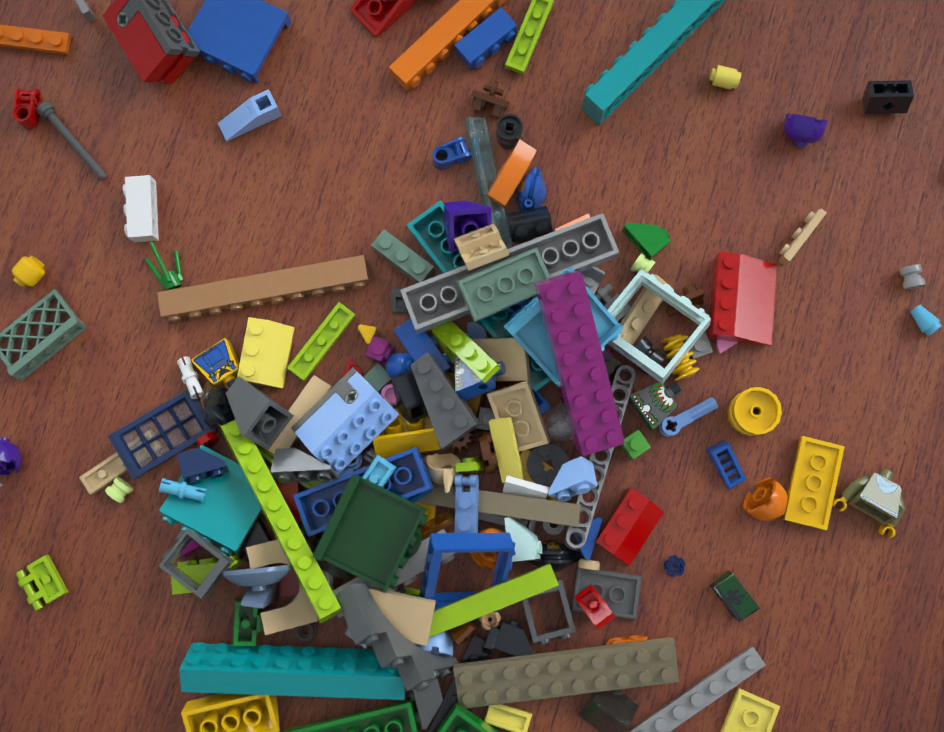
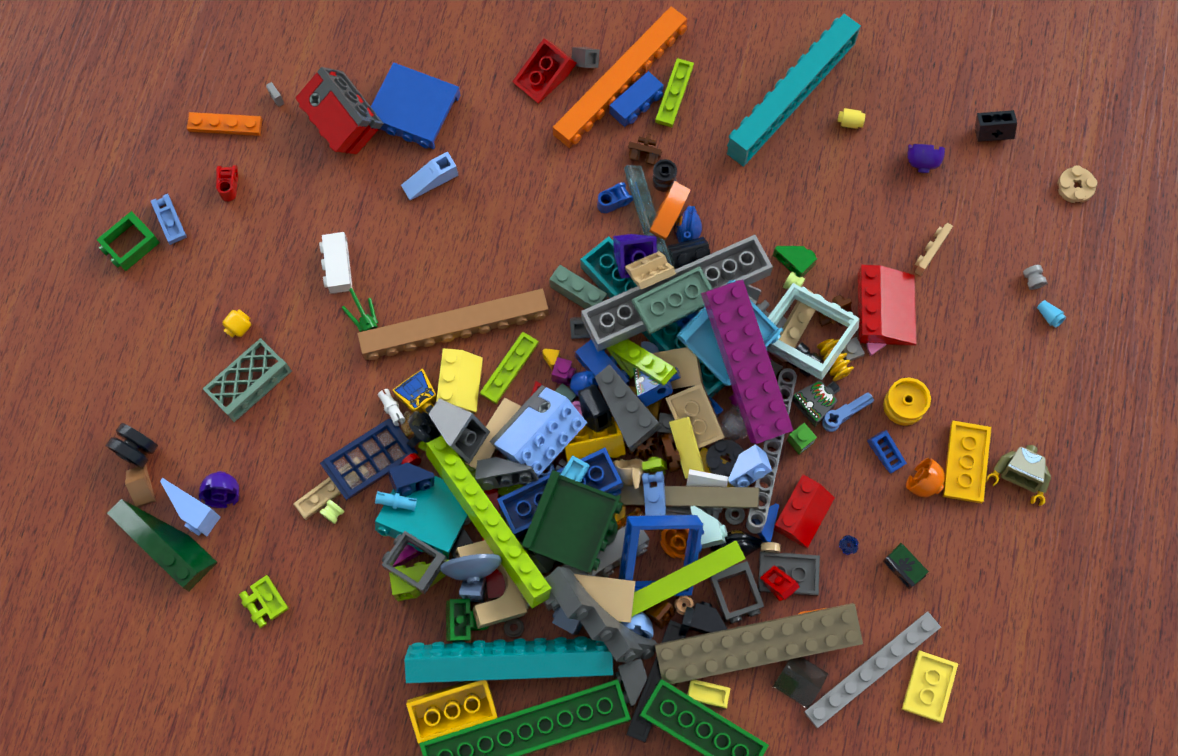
camera: 10 degrees left, 10 degrees down
(47, 111) = (245, 184): dark grey piece -> none

